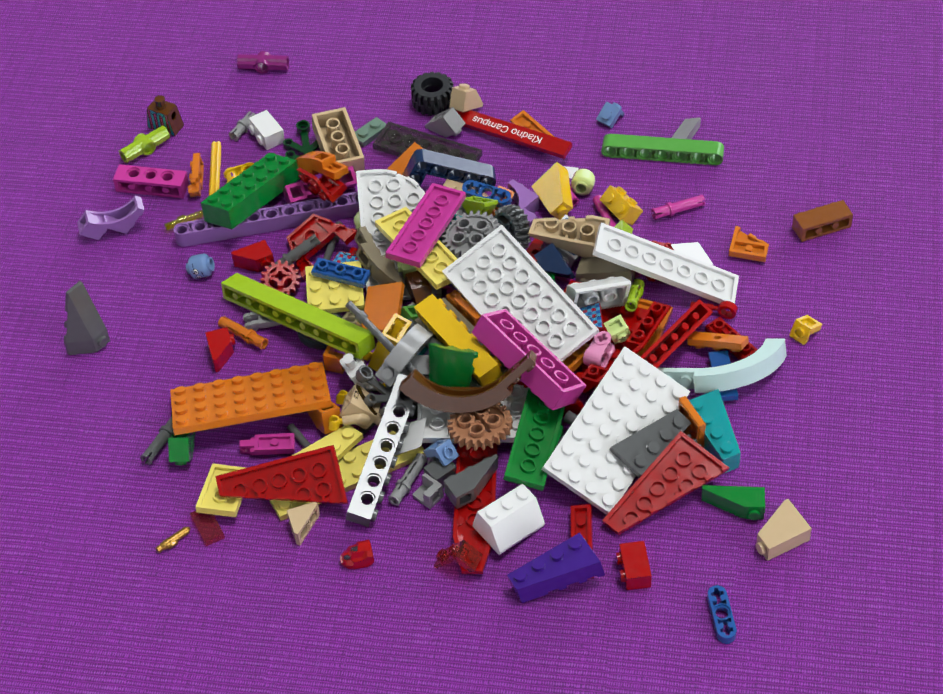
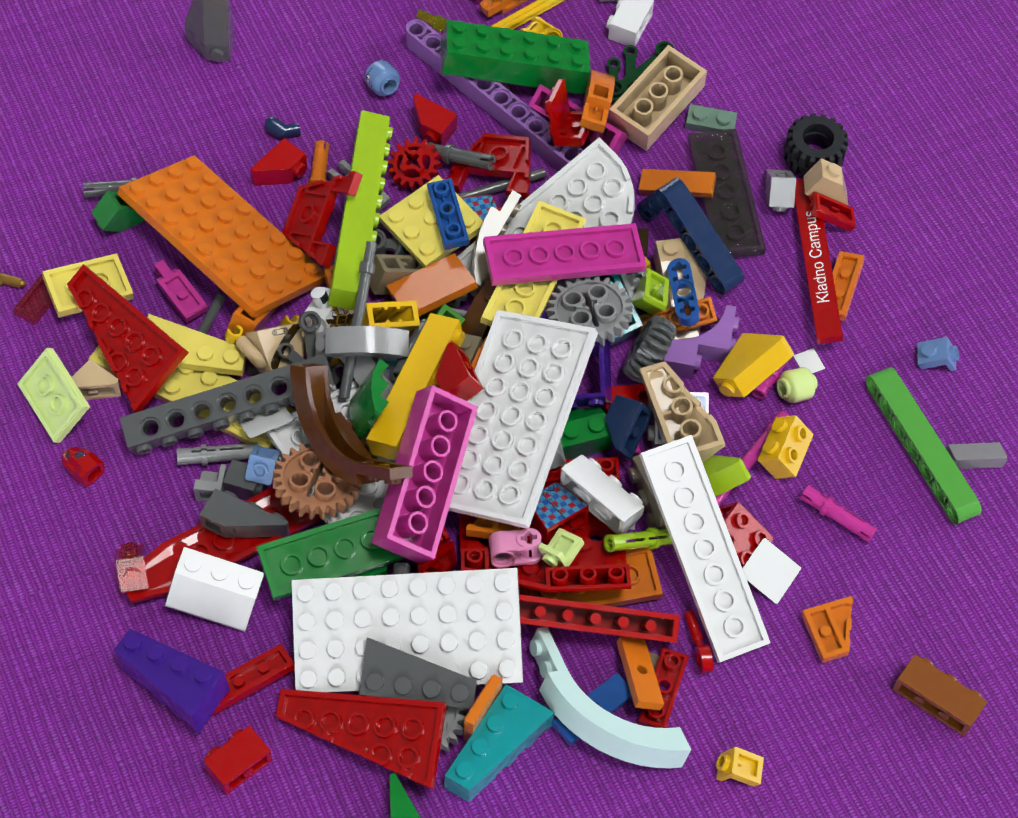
camera: 50 degrees right, 10 degrees up
(190, 336) = (281, 130): none -> dark blue arm
(277, 344) = (311, 214): none -> red wing
(295, 544) = (53, 395): none -> yellowish green tile
(469, 310) = (457, 374): none -> red slope
(481, 108) = (832, 211): none -> red tile

